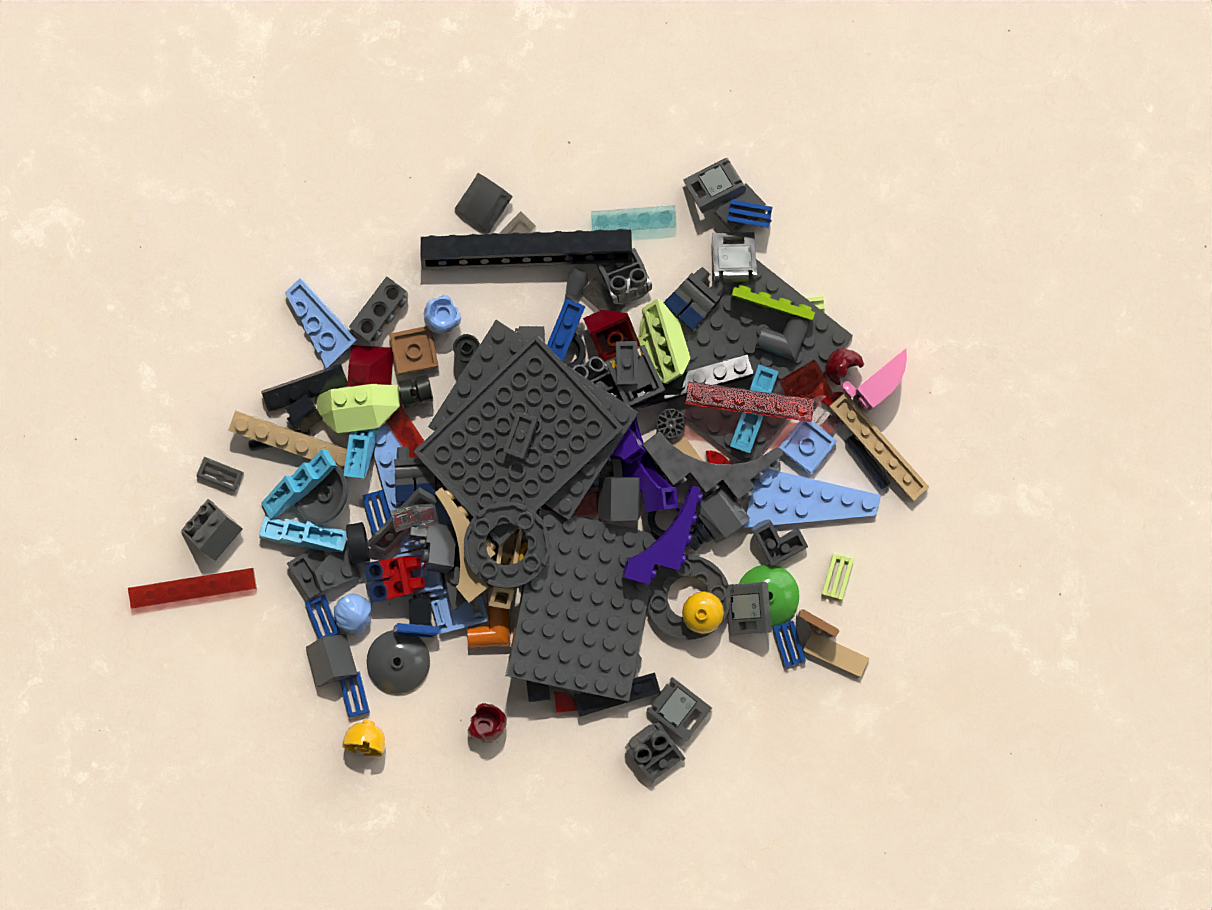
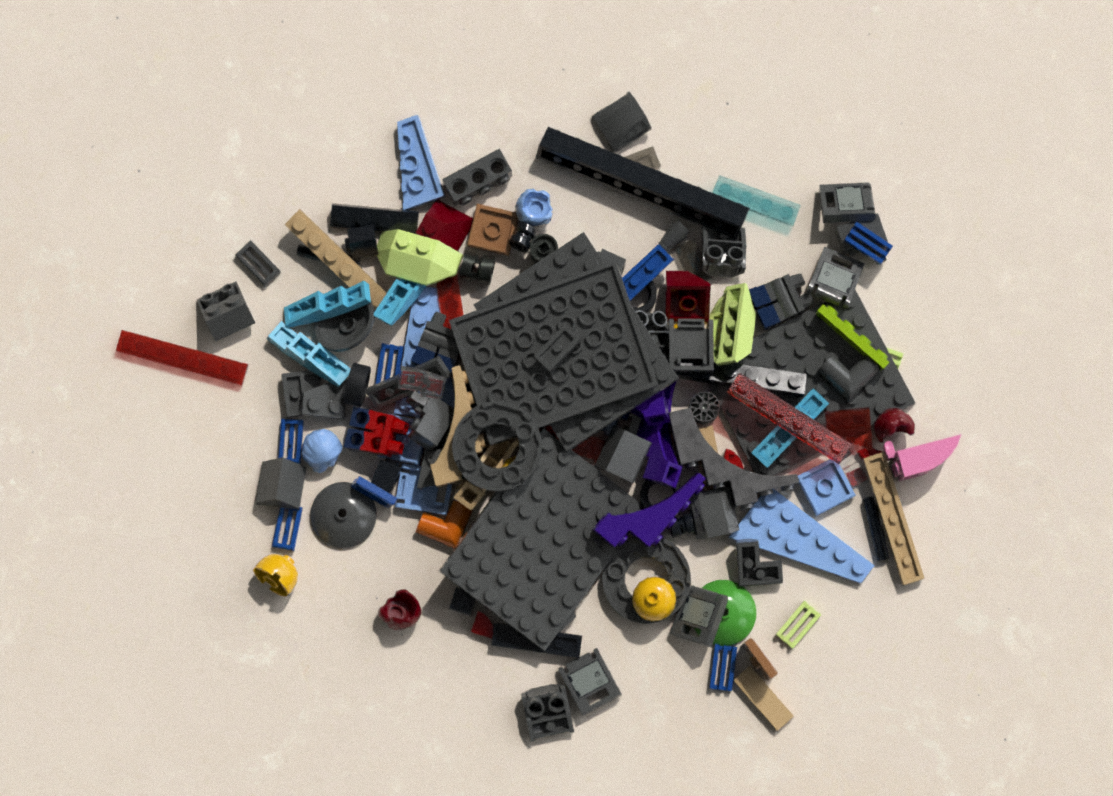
camera: 25 degrees right, 5 degrees down
(443, 343) = (523, 235): none -> black wheel
(627, 363) = (688, 328): dark grey plate -> none

